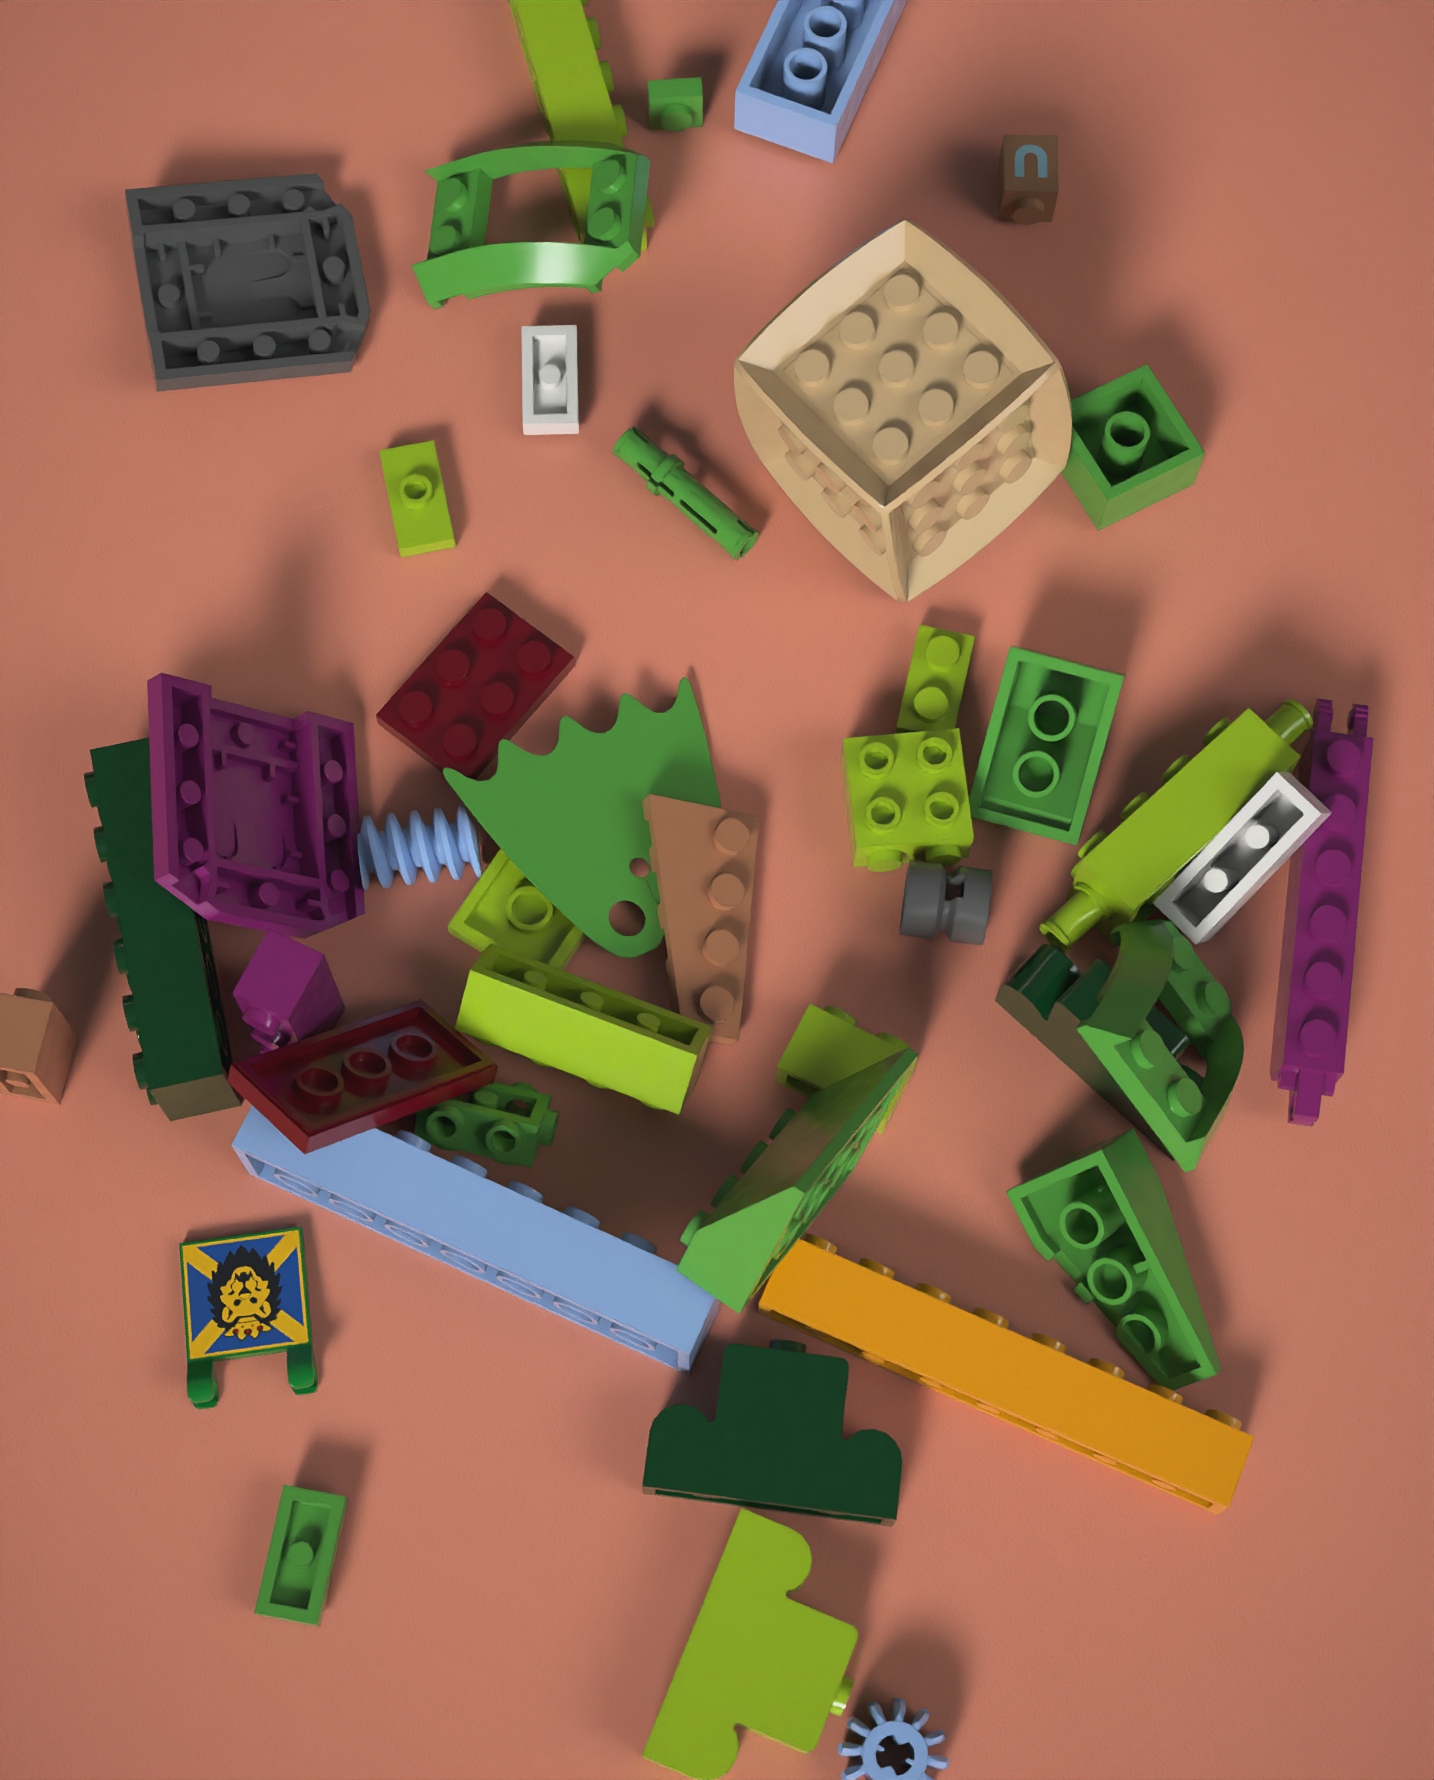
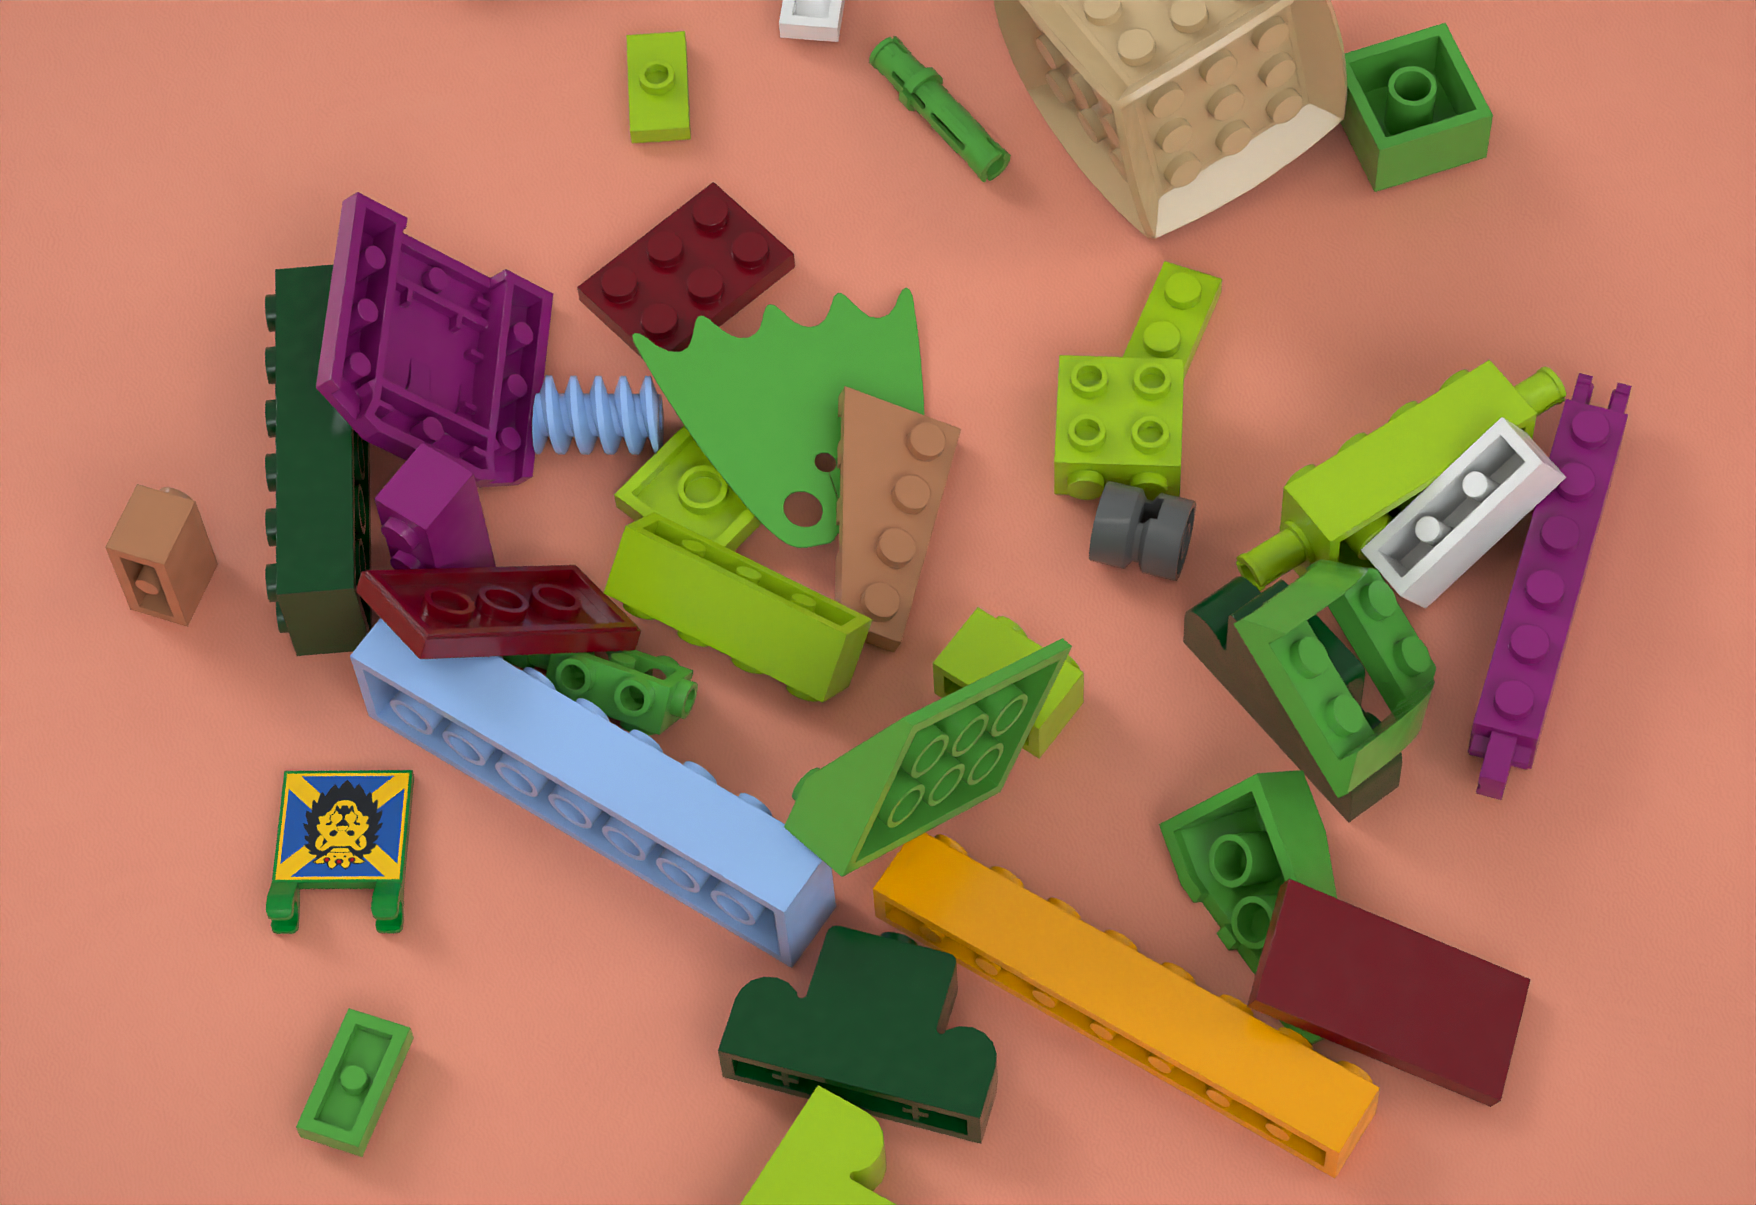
camera: 15 degrees right, 10 degrees down
(1045, 744) = (1278, 386): bright green slope -> none
(1246, 1339) = (1389, 993): none -> dark red tile

